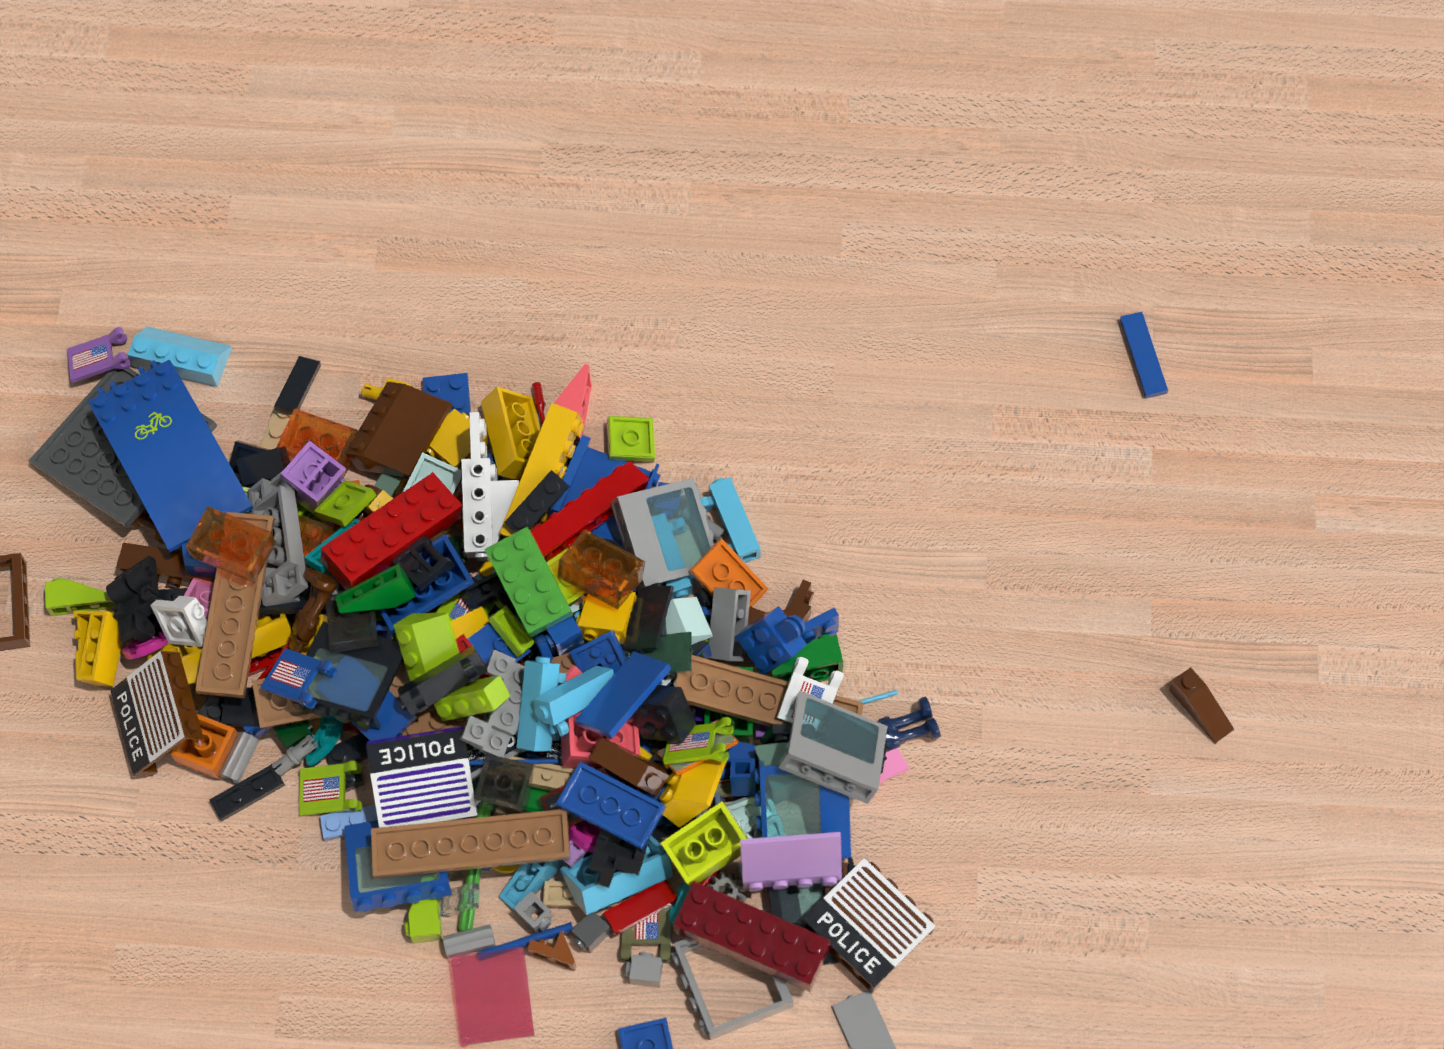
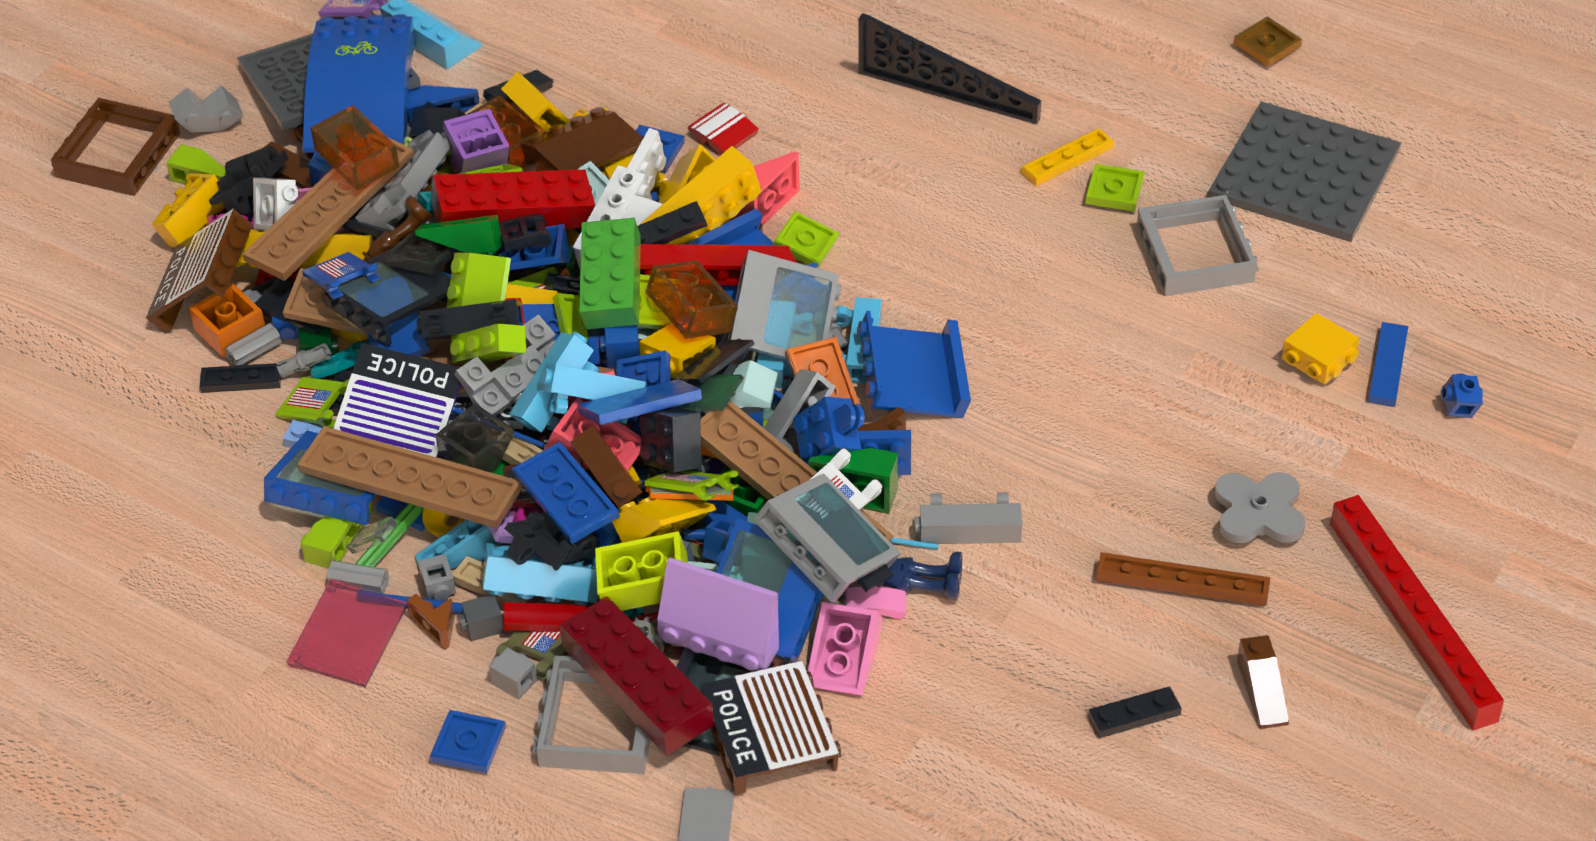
camera: 25 degrees right, 20 degrees down
(43, 535) = (212, 114): none -> light grey brick
(240, 428) = (442, 98): none -> blue slope
(330, 403) = (533, 102): none -> yellow brick
(495, 350) = (723, 128): none -> red slope
(615, 217) = (910, 63): none -> black wing
(791, 253) = (1067, 157): none -> yellow tile
(793, 533) = (914, 369): none -> blue panel
(847, 270) = (1115, 187): none -> lime plate
(884, 827) = (844, 648): none -> bright pink slope
(889, 58) = (1267, 41): none -> pearl gold plate
(912, 661) = (970, 522): none -> light grey brick
(914, 323) = (1191, 212): none -> light grey window
(985, 184) = (1305, 171): none -> dark grey plate
(1091, 367) = (1320, 348): none -> yellow brick
(1096, 637) = (1183, 579): none -> dark orange plate
(1117, 559) = (1259, 508): none -> light grey plant
(1121, 775) = (1134, 712): none -> black plate
(1216, 365) = (1462, 395): none -> blue brick
(1278, 587) = (1417, 613): none -> red brick

